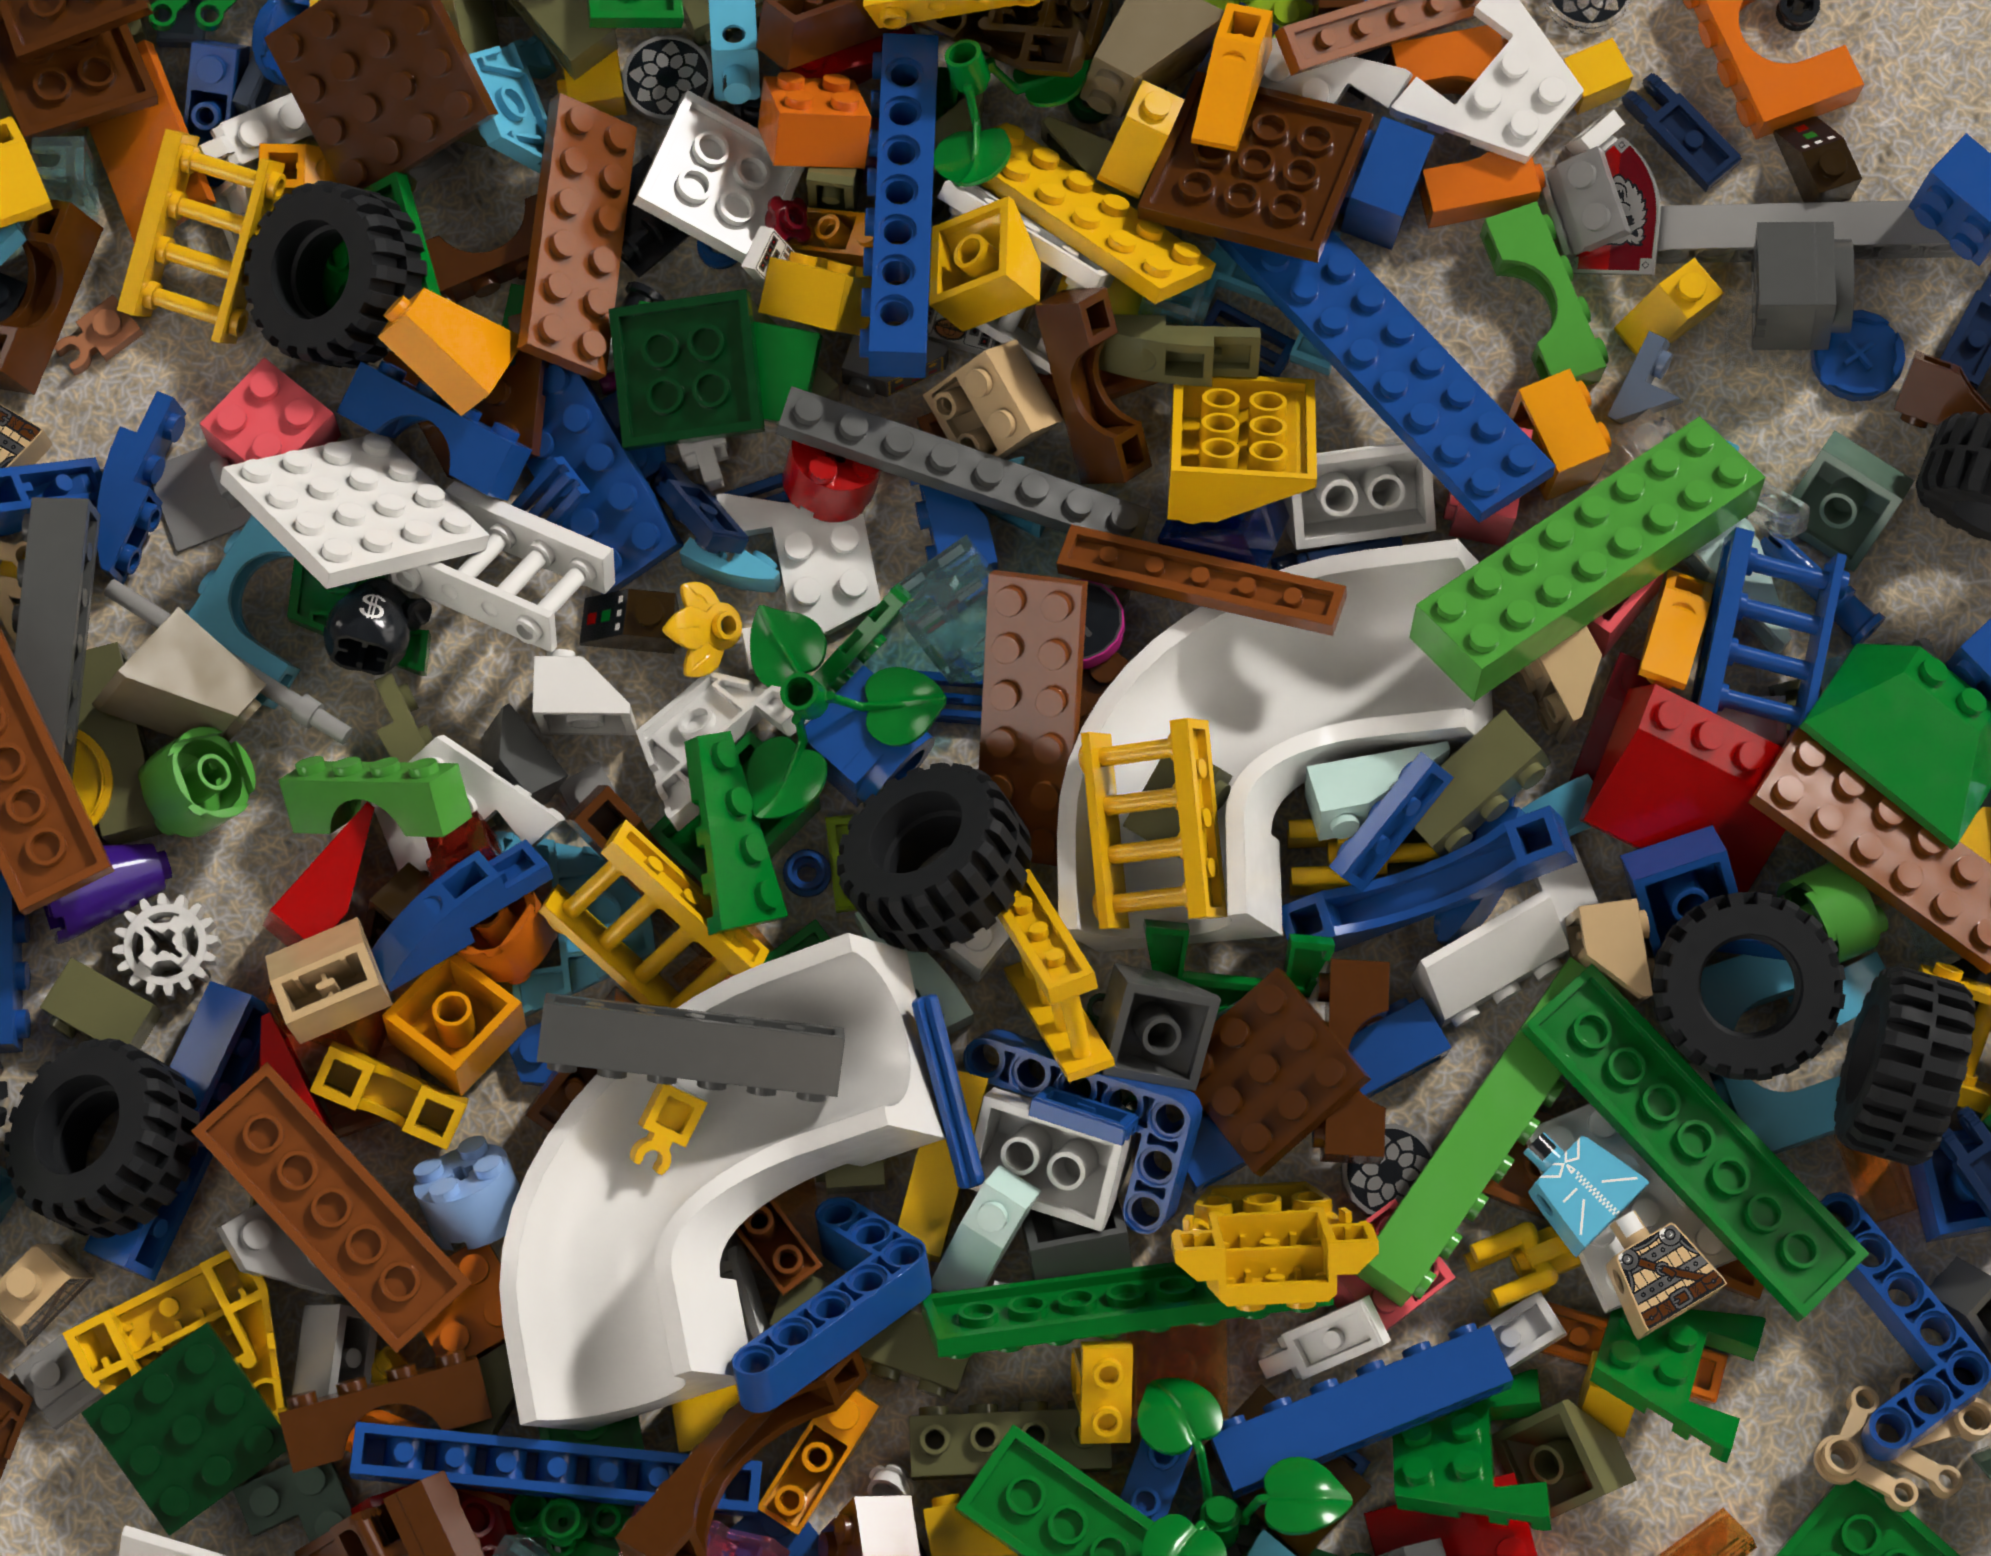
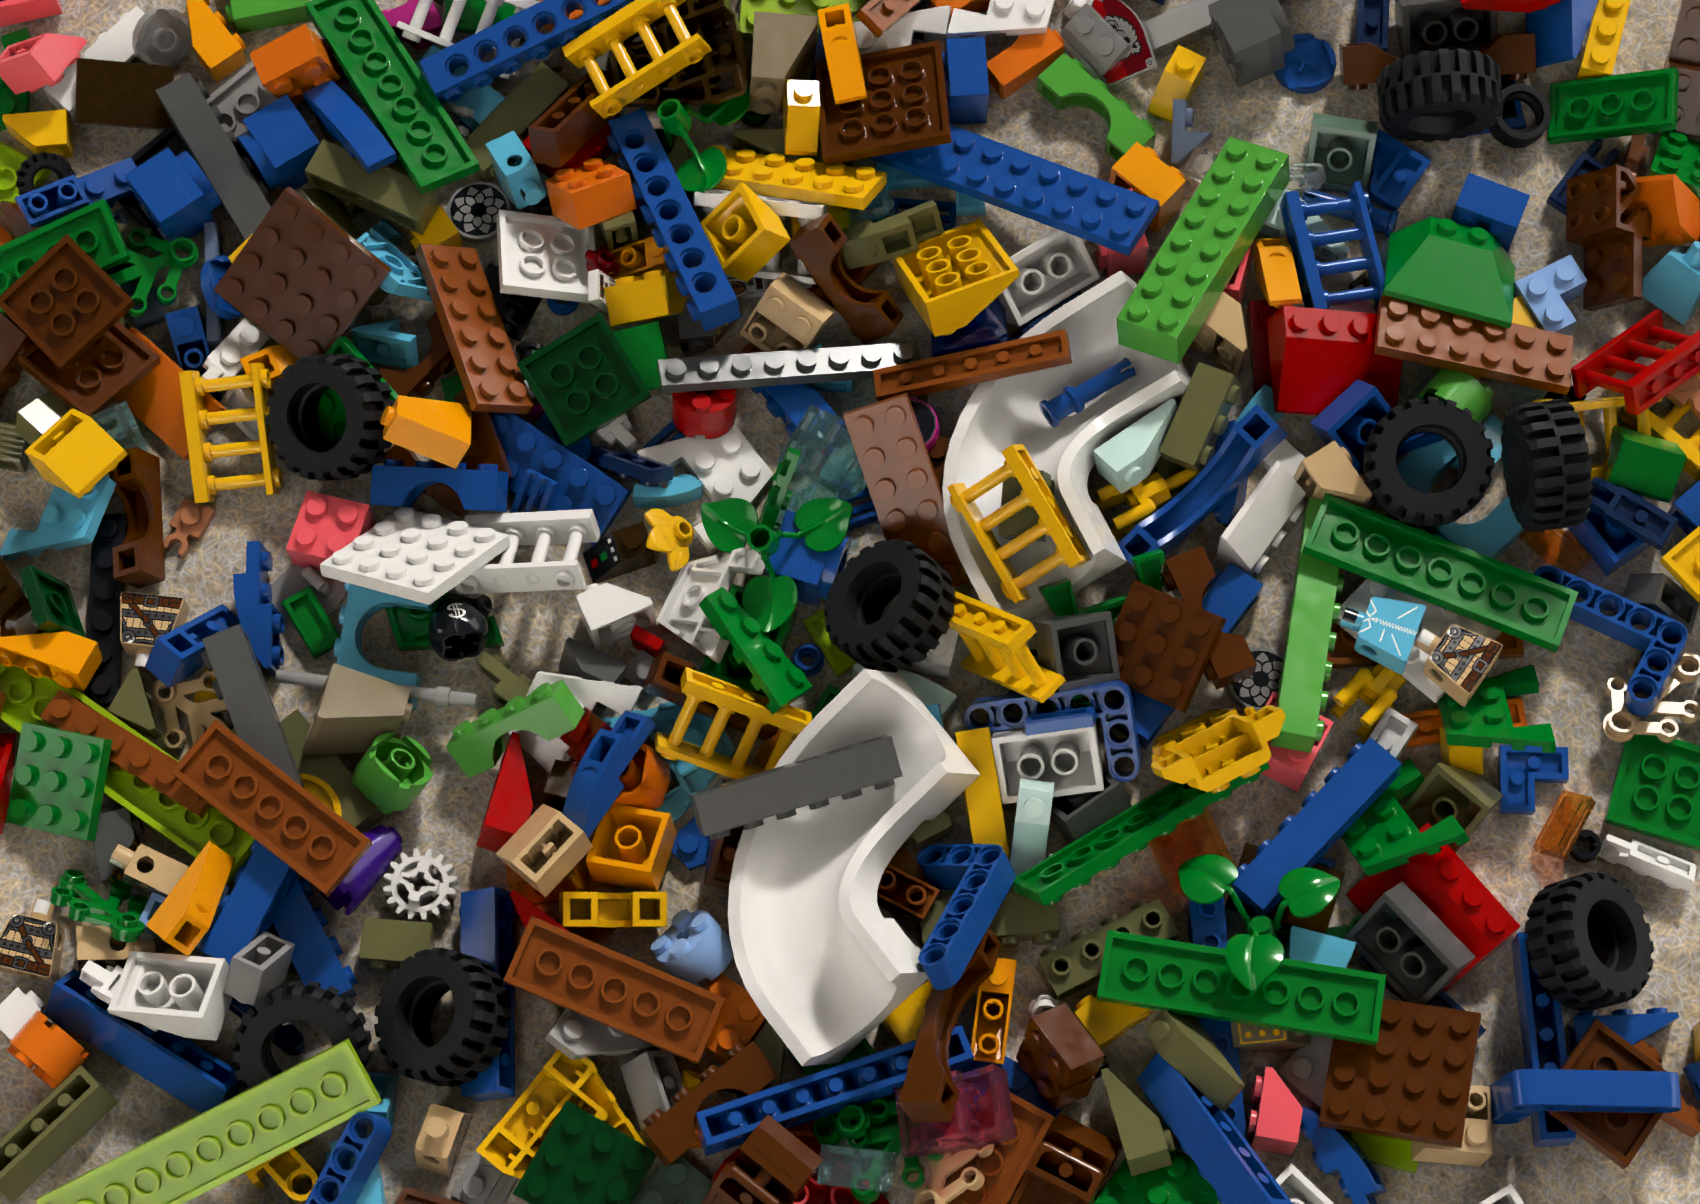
camera: 20 degrees left, 5 degrees down
(194, 532) = (311, 622): none -> green tile
(459, 205) = (385, 344): none -> medium azure slope
(609, 757) = (648, 642): none -> red tile
(669, 1119) = (802, 839): yellow plate -> none
(948, 1091) = (968, 745): blue axle -> none
(1103, 1390) = (1151, 885): yellow pin -> none
(1320, 681) = (1074, 398): none -> blue pin
(1327, 1341) = (1274, 795): white hinge -> none
(1390, 821) = (1162, 459): blue plate -> none
(1672, 1461) = (1521, 770): none -> blue plate
(1906, 558) = (1394, 171): none -> blue wing

